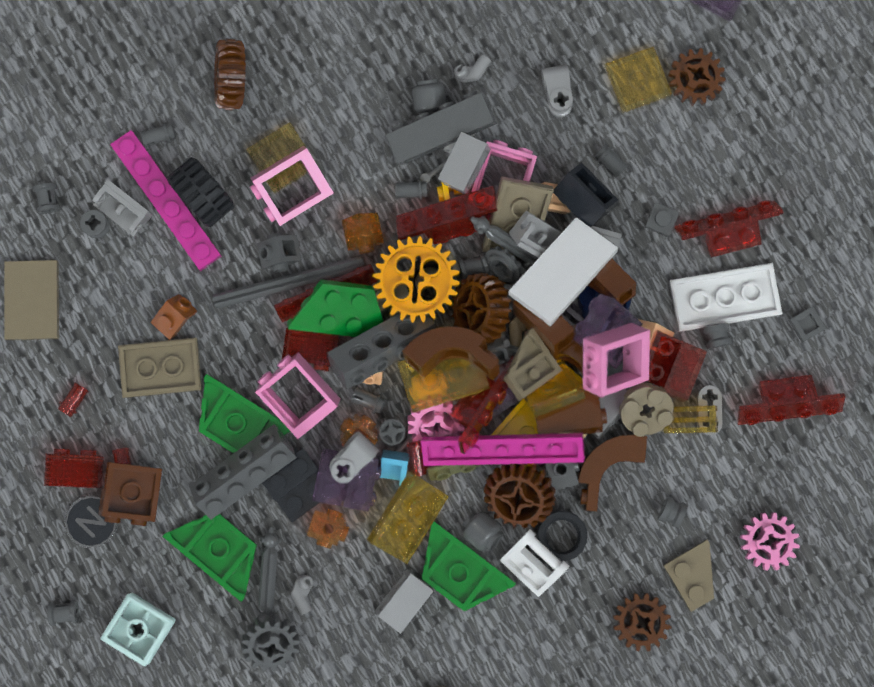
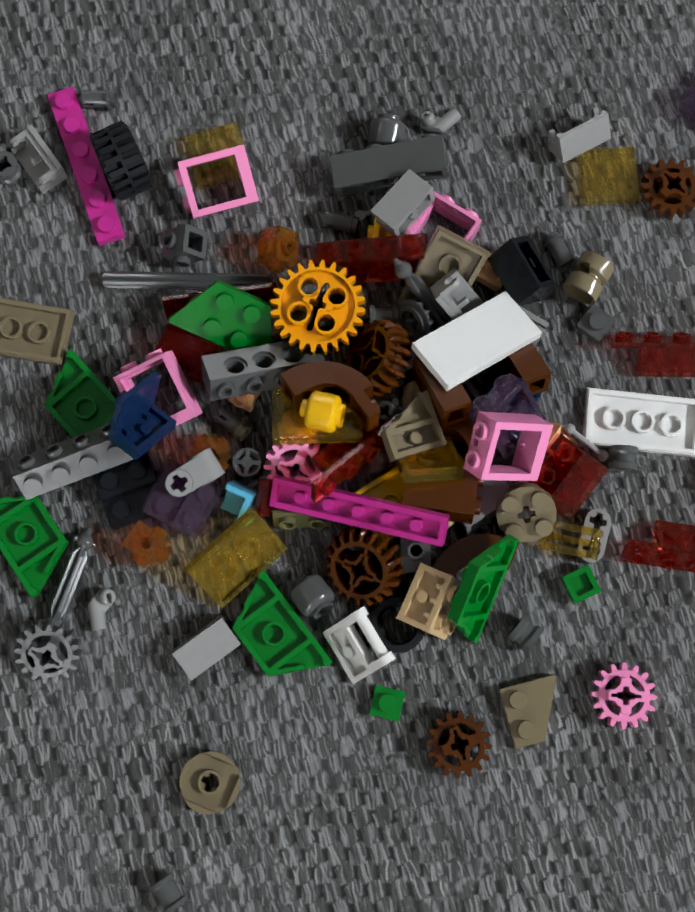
camera: 15 degrees right, 5 degrees down
(173, 315) = (55, 281): dark orange bracket -> none
(229, 74) = (187, 52): reddish brown gear -> none
(293, 426) = (137, 421): none -> dark blue bracket
(449, 374) = (323, 412): none -> yellow head
(558, 86) = (522, 160): light grey piece -> none
(571, 604) = (387, 703): none -> green plate
(588, 509) = (429, 601): none -> tan bracket
(605, 52) = (581, 137): none -> light grey hinge
(624, 485) = (480, 587): none -> green wing
(644, 181) = (587, 279): none -> dark tan wheel
(698, 335) = (601, 454): none -> light grey hinge
(709, 456) = (580, 584): none -> green plate

